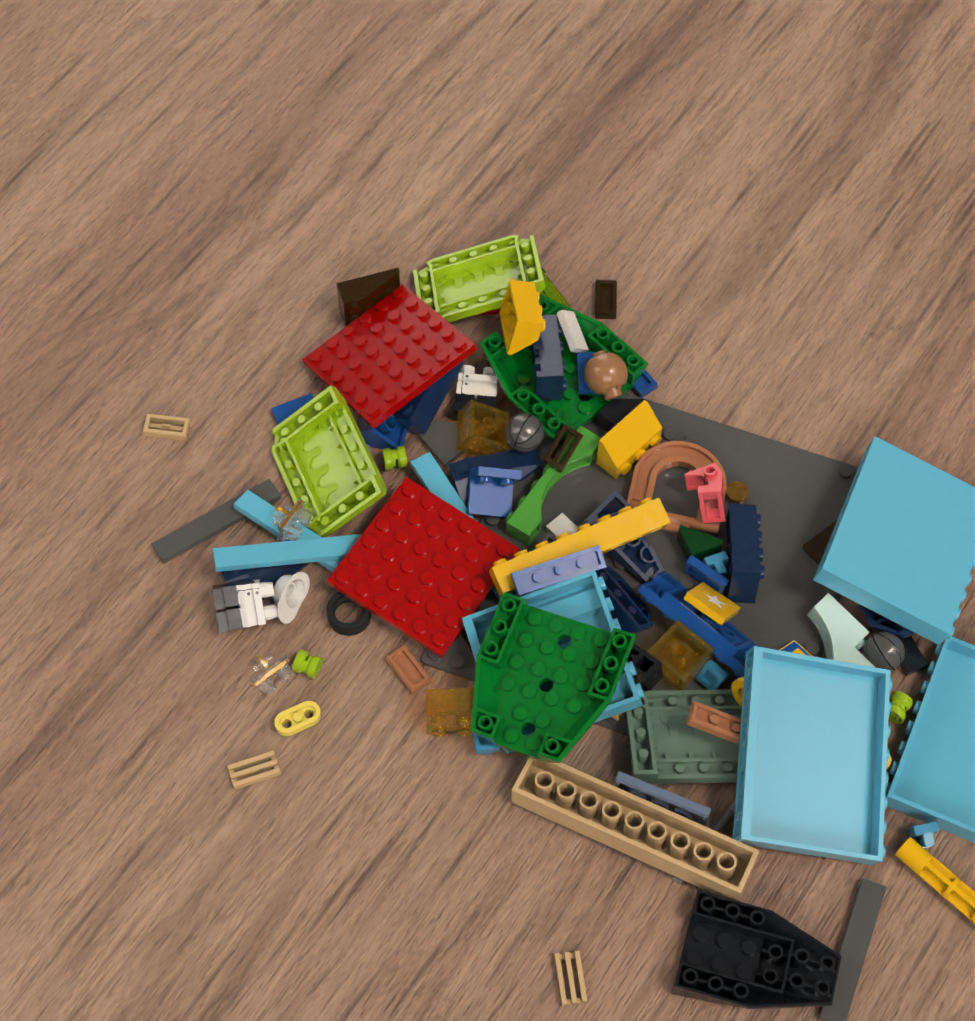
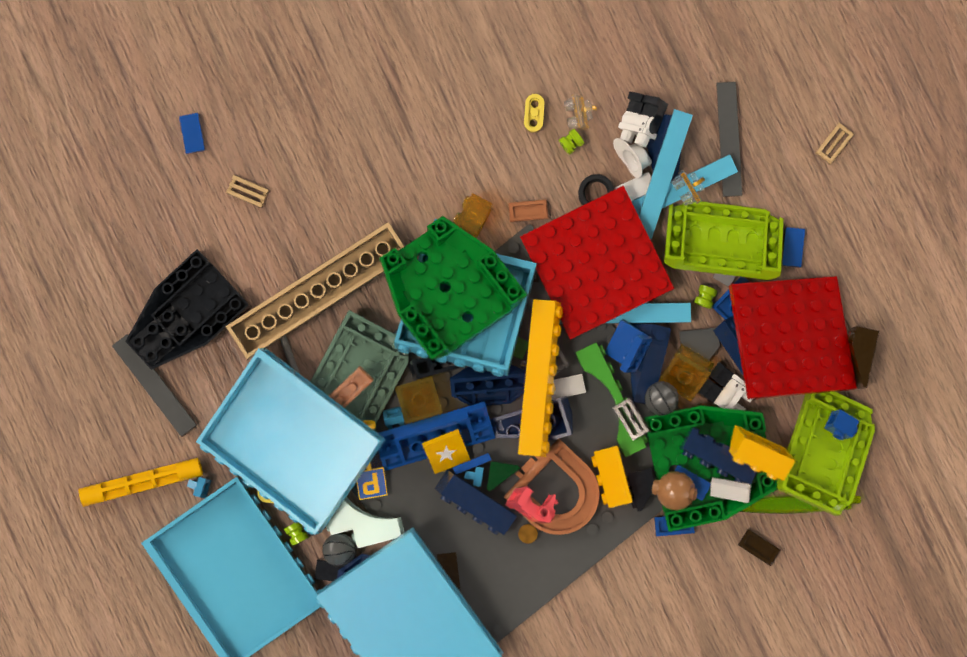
camera: 130 degrees right, 25 degrees up
(250, 762) = (517, 48): tan tile -> none
(318, 579) = (637, 187): none -> white tile
(446, 278) = (841, 425): none -> blue brick
(557, 570) = (524, 346): plate -> none
(663, 798) = (323, 320): sand blue tile -> none

